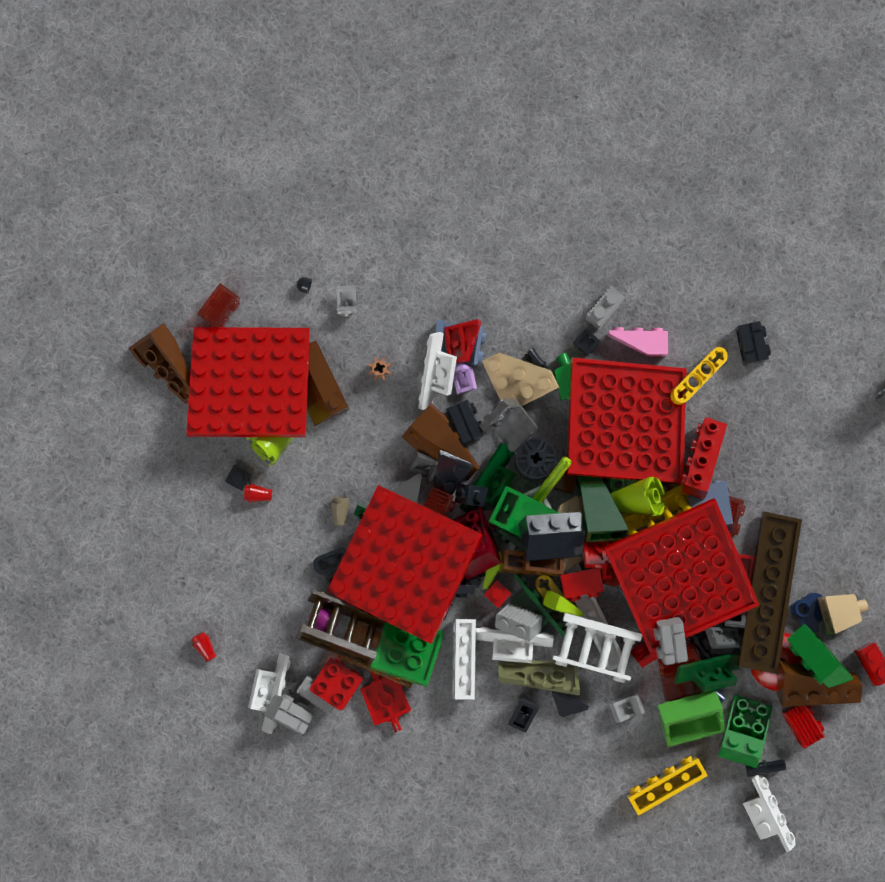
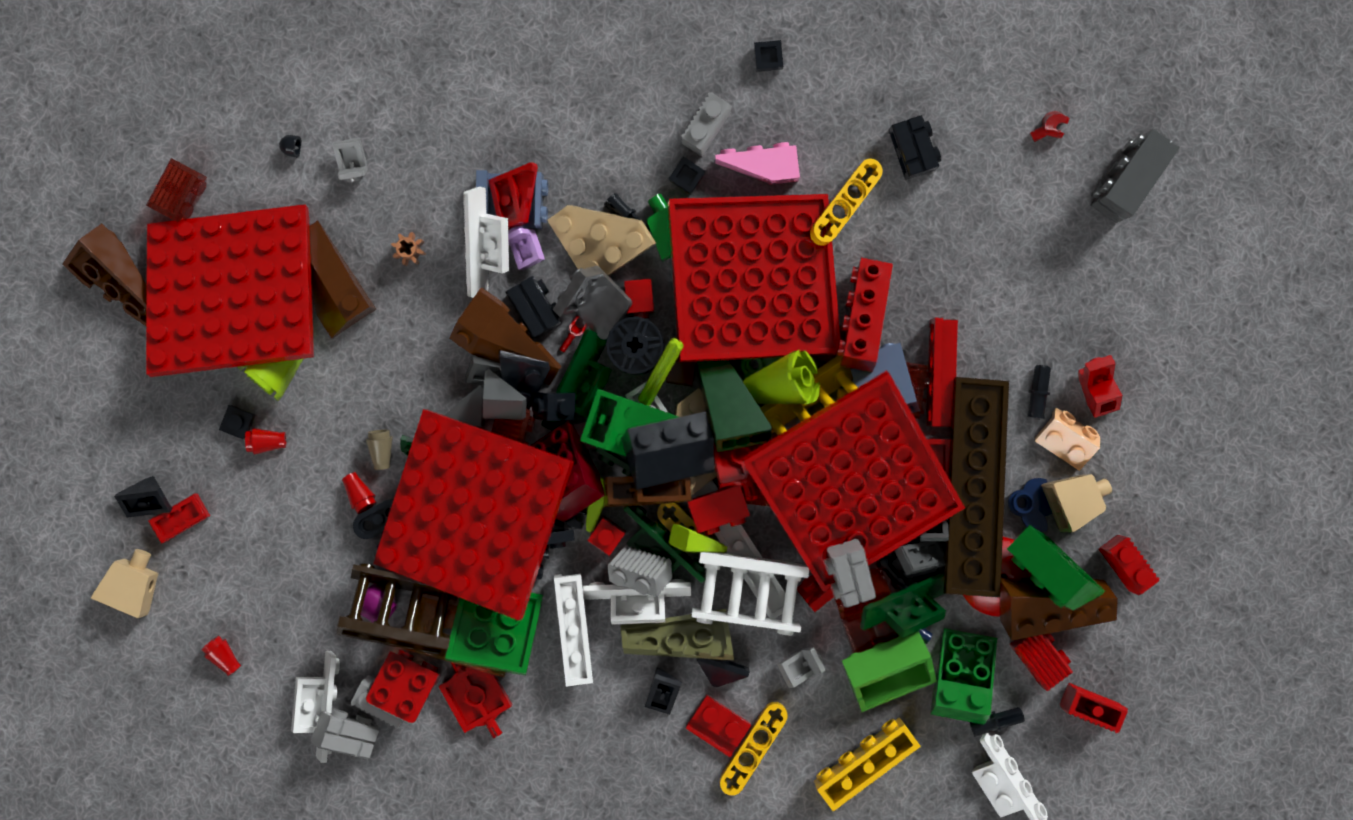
camera: 15 degrees left, 5 degrees up
(144, 585) = (128, 585): none -> tan torso
(164, 524) = (143, 499): none -> black slope
(187, 542) = (181, 518): none -> red plate
(320, 541) = (359, 495): none -> red cone
(435, 485) = (501, 399): none -> dark grey slope
(491, 443) = (574, 331): none -> red hand
(544, 425) = (642, 297): none -> red brick
(560, 745) = (718, 725): none -> red plate
(587, 767) = (750, 746): none -> yellow beam
(655, 264) = (768, 56): none -> black plate
(755, 506) = (943, 366): none -> red fence
(823, 530) = (1039, 391): none -> black axle
(837, 765) = (1093, 708): none -> red brick
(841, 567) = (1069, 439): none -> light nougat bracket
(851, 340) = (1049, 126): none -> red piece
(867, 532) = (1099, 386): none -> red brick

